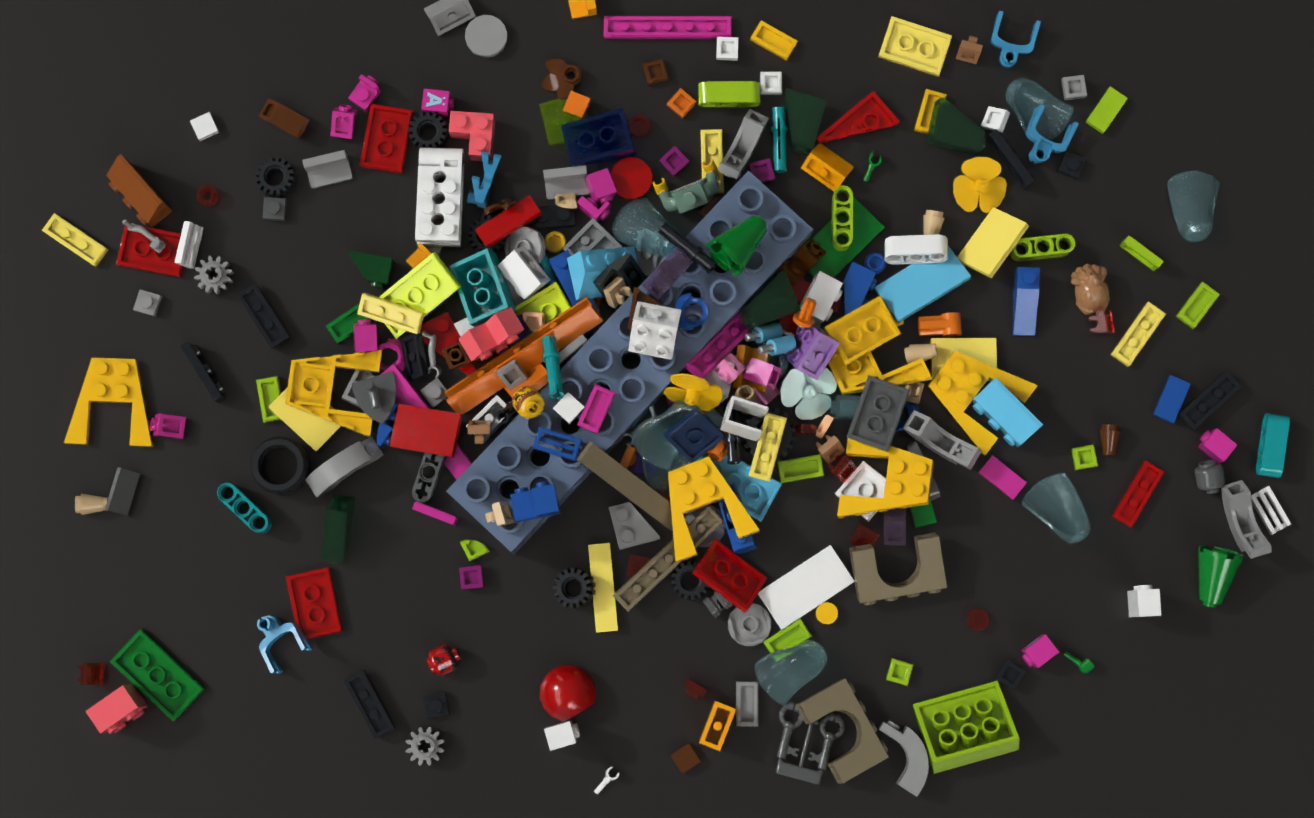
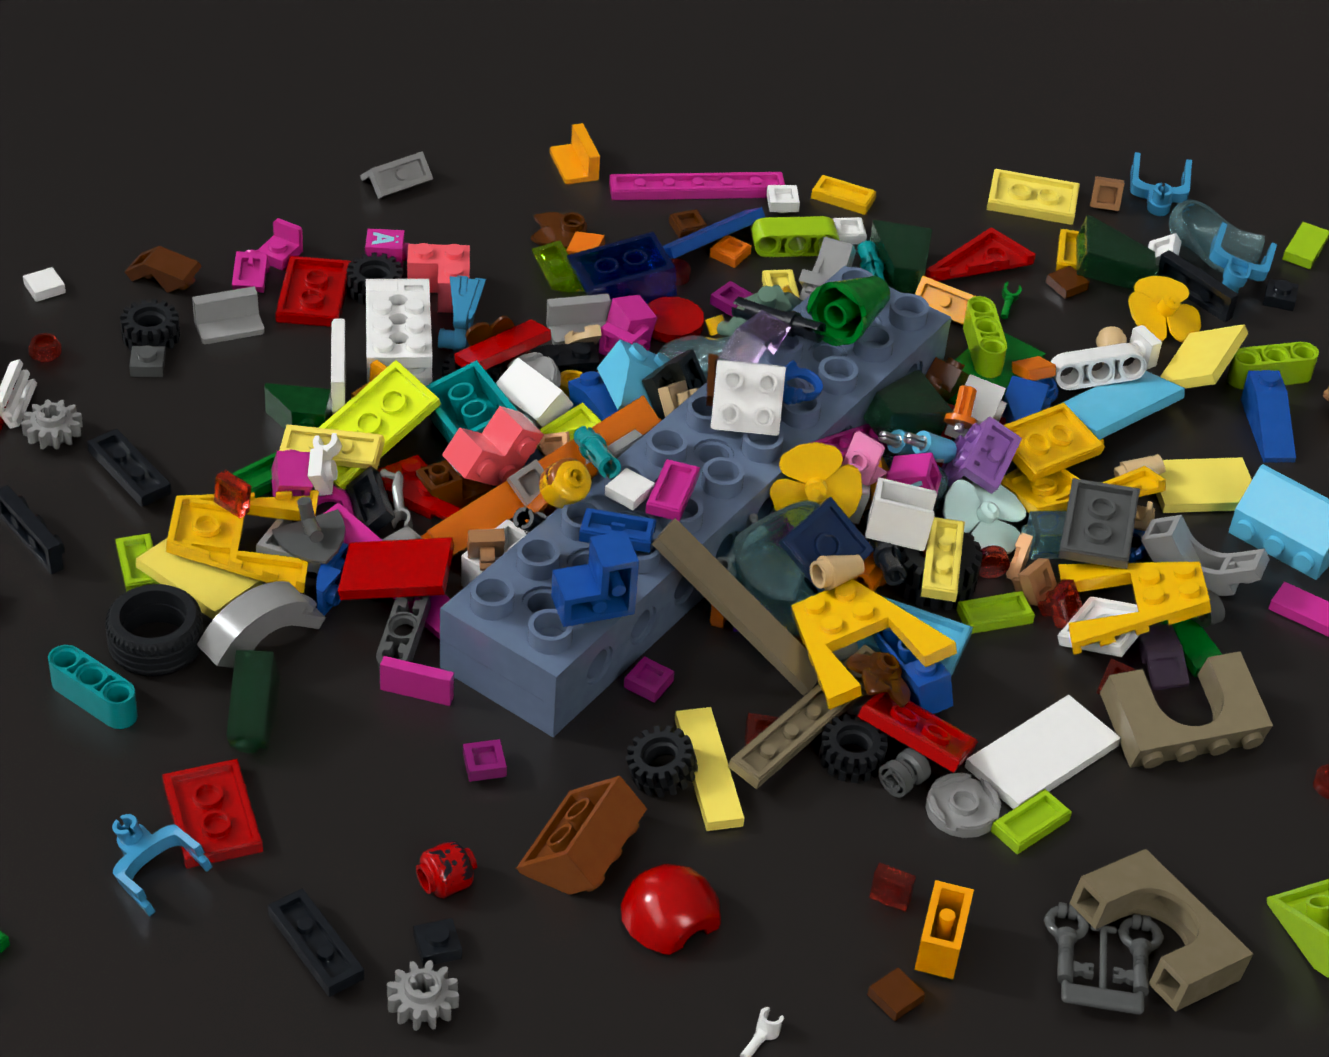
camera: 10 degrees left, 40 degrees down
(326, 366) = (232, 493): none -> clear red plate
(383, 334) = (322, 468): none -> white plate
(397, 247) = (338, 365): none -> white tile
(473, 549) = (484, 729): lime tile -> none
(486, 36) = (449, 196): light grey tile -> none
(501, 514) = (535, 606): tan tile -> none
(522, 640) = (584, 836): none -> dark orange slope
(562, 735) = (672, 951): white brick -> none
(575, 518) = (649, 679): none -> magenta plate
(630, 526) = (742, 690): light grey wing -> none
(667, 90) = (713, 232): none -> blue tile
(697, 457) = (835, 570): none -> tan cone
(709, 543) = (880, 675): none -> reddish brown plate
(747, 704) = (987, 914): light grey tile -> none
(790, 669) = (1047, 850): clear light blue hair -> none
(826, 613) = (1086, 783): yellow tile -> none
(870, 250) = (1034, 368): none -> orange tile
(899, 672) = (1230, 855): lime tile -> none
(917, 761) = (1291, 955): light grey arch -> none
(918, 147) = (1067, 282): none -> reddish brown tile
(946, 325) = (1166, 441): orange piece -> none
(954, 225) = (1147, 344): none -> white plate
(960, 382) = (1207, 503): yellow wing -> none
(1074, 87) = (1256, 222): light grey plate -> none

